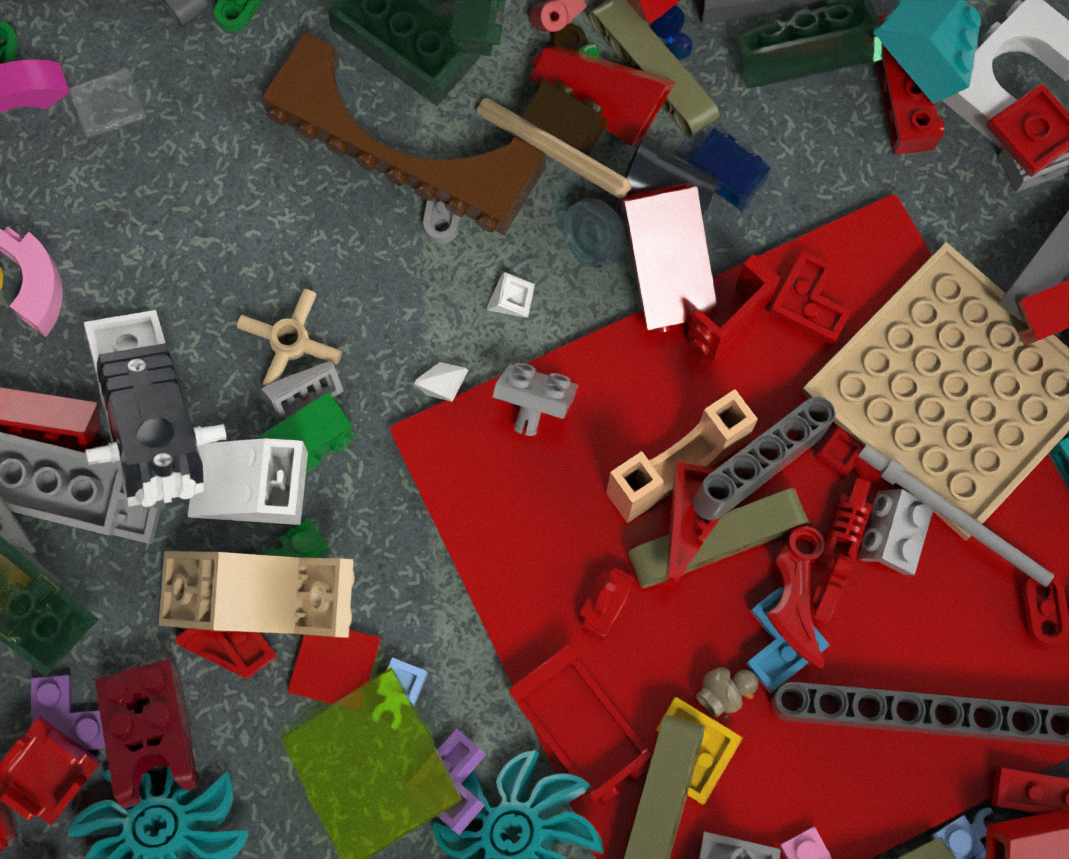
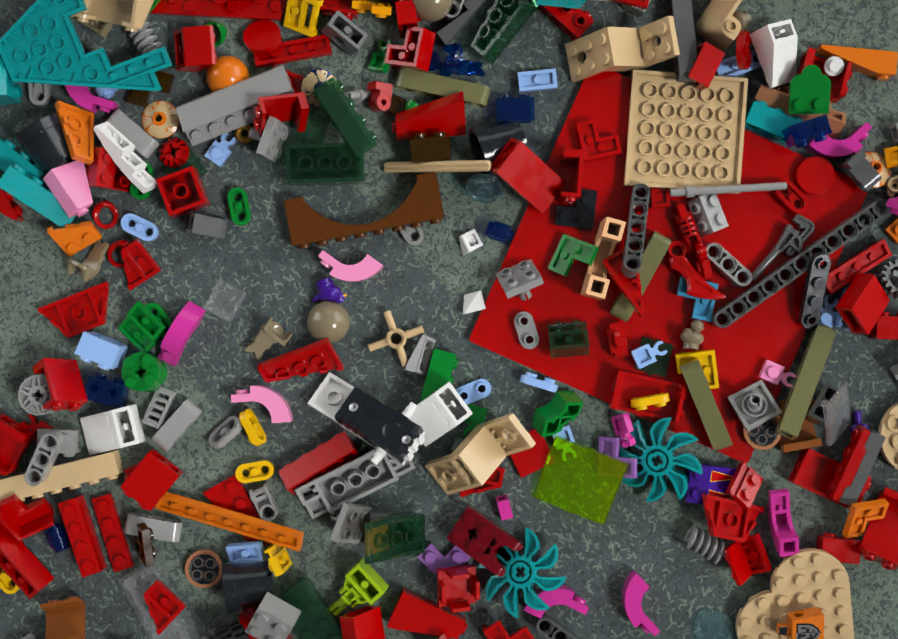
camera: 40 degrees left, 15 degrees up
(123, 192) = (269, 333): none -> dark tan hair
(141, 266) = (308, 359): none -> red wing
(217, 242) = (328, 320): none -> dark tan piece
(223, 715) = (504, 507): none -> dark pink piece
(256, 201) = (329, 291): none -> dark purple animal
(321, 209) = (352, 273): none -> bright pink arch
(329, 505) = (472, 390): none -> light blue plate
(423, 637) = (557, 413): none -> green brick
(446, 584) = (531, 379): none -> light blue plate
(484, 478) = (524, 331): none -> light grey plate
(504, 744) = (623, 427): none -> dark pink plate
(531, 540) = (569, 342): none -> brick
(565, 313) = (499, 231): none -> clear blue brick
(592, 741) = (642, 402): none -> yellow plate
(629, 658) = (646, 355): none -> light blue plate
(640, 677) = (660, 366): none -> clear green piece
(644, 415) = (568, 250): none -> green plate
(698, 51) = (458, 65): none -> clear blue hair
(700, 383) = (582, 215): none -> black plate
(795, 157) = (537, 80): none -> light blue plate
(859, 644) = (735, 266): none -> light grey beam
(953, 199) = (622, 49): none -> tan bracket
(973, 776) = (814, 290): none -> black plate
(991, 672) = (788, 242): none -> dark grey piece

